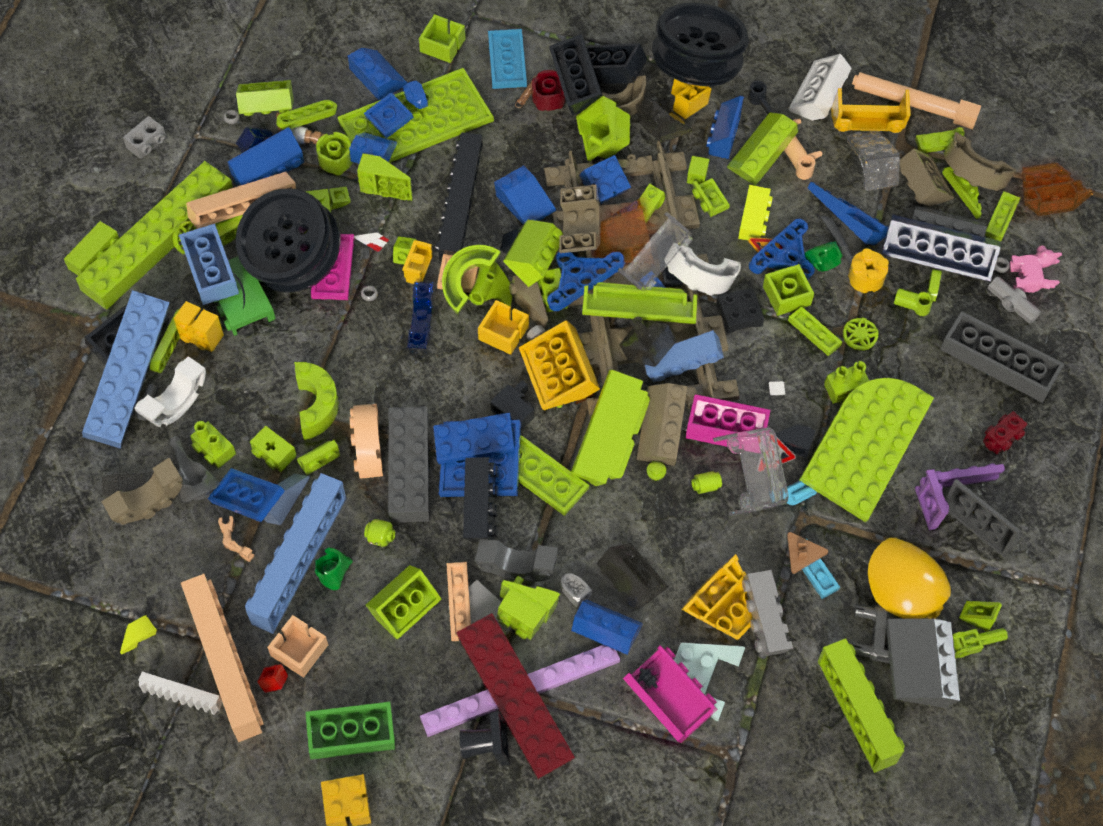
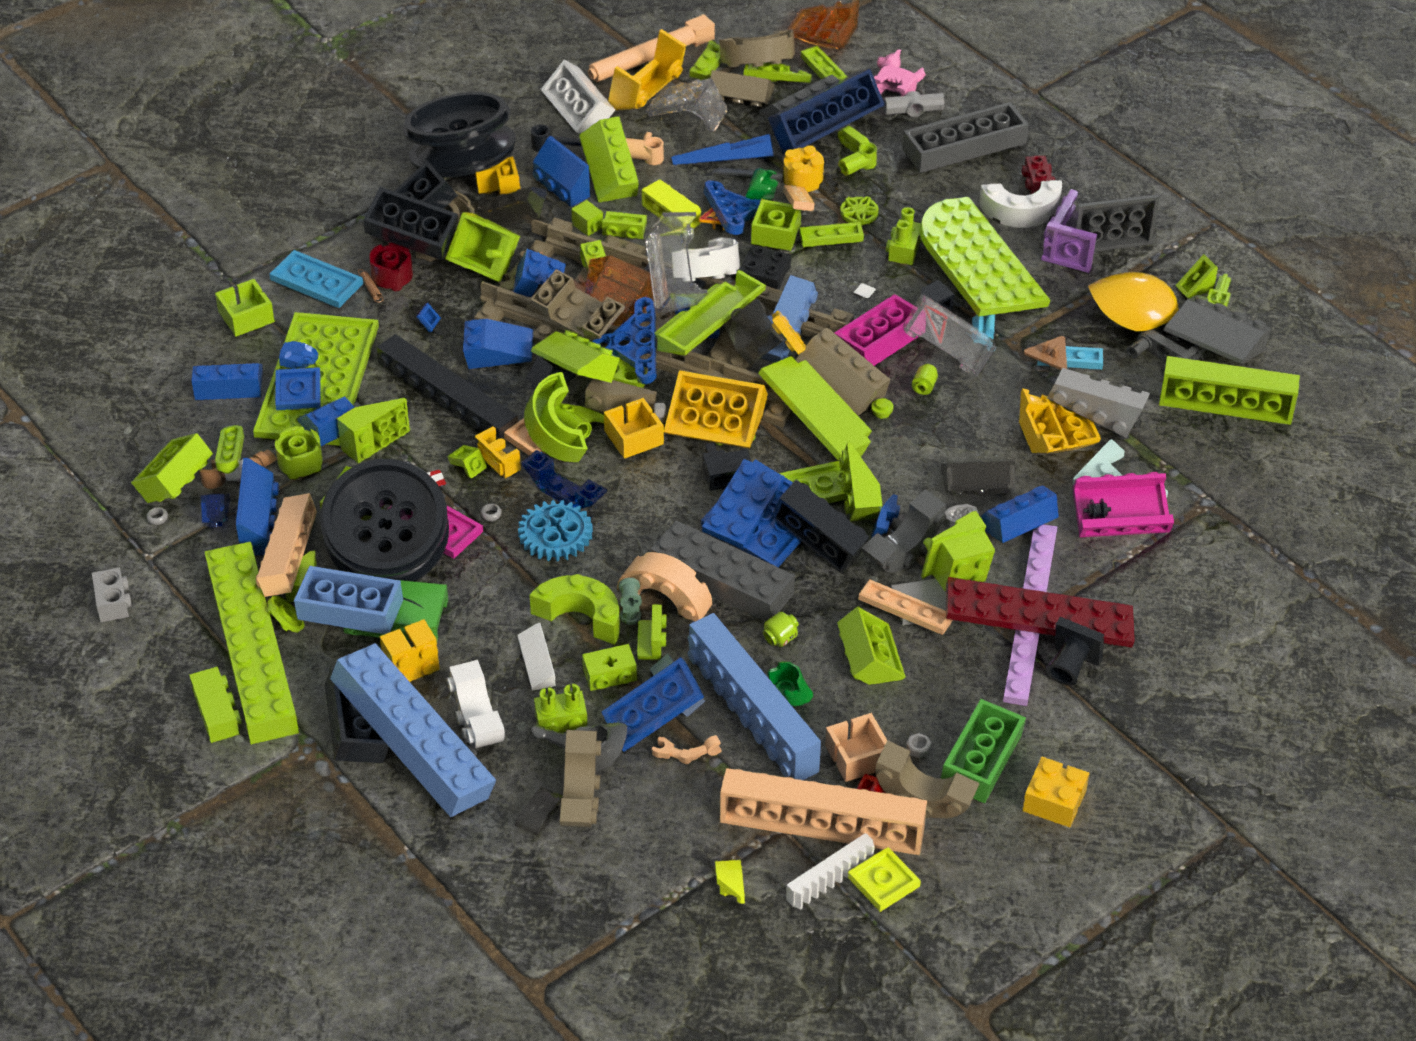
camera: 55 degrees left, 15 degrees down
(195, 731) = (884, 879): none -> neon yellow plate
(256, 401) = (536, 658): none -> white slope
(286, 706) = (901, 778): none -> dark tan brick
(333, 424) = (630, 601): none -> sand green connector
(333, 684) = (918, 745): none -> light grey tile
(391, 345) = (555, 530): none -> dark azure gear
(521, 142) = (428, 317): none -> blue slope
(543, 503) = (862, 487): none -> lime slope
(544, 535) = (888, 512): none -> blue slope
(657, 364) = (782, 325): none -> yellow plate
(824, 286) = (798, 197): none -> light nougat tile
(958, 448) = (1021, 210): none -> white brick

